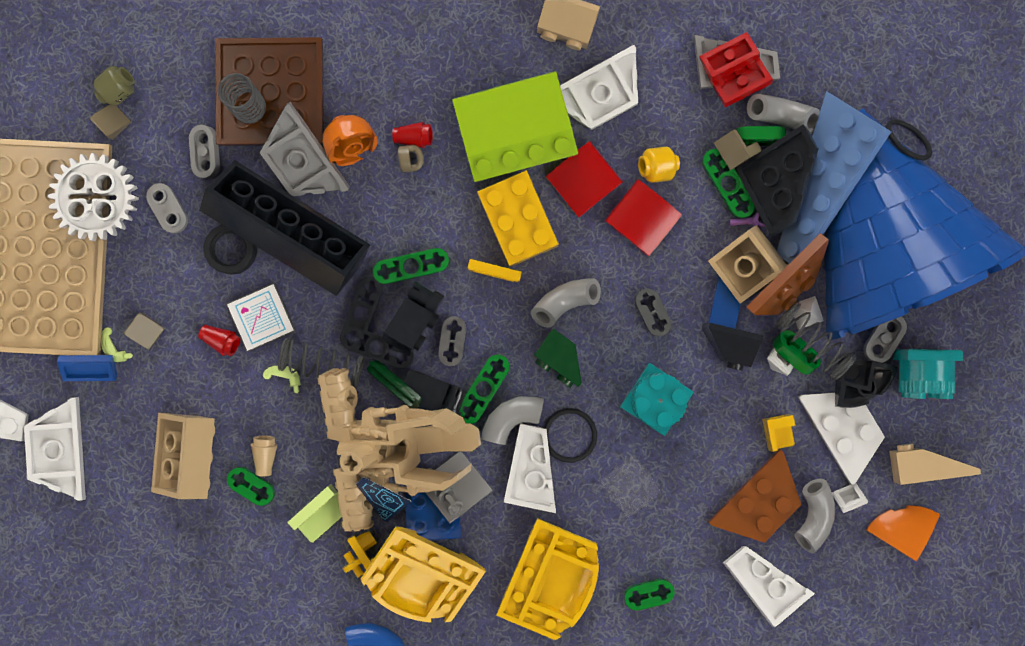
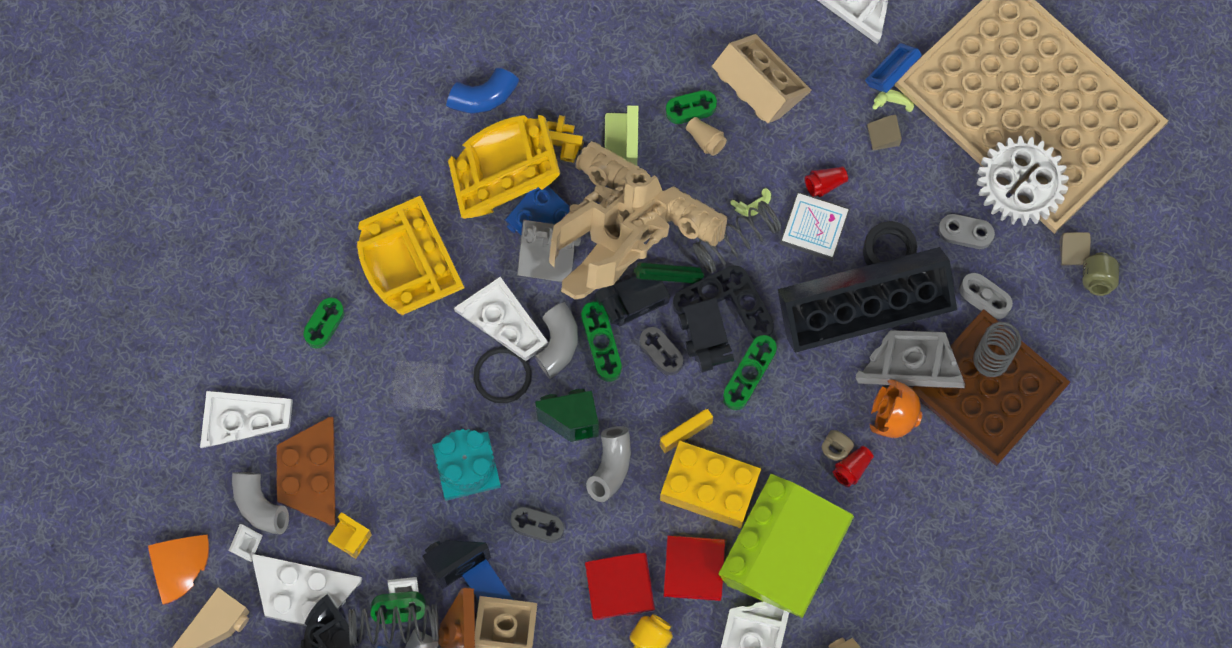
camera: 130 degrees right, 15 degrees down
(383, 500) = (581, 187): dark blue sticker -> none

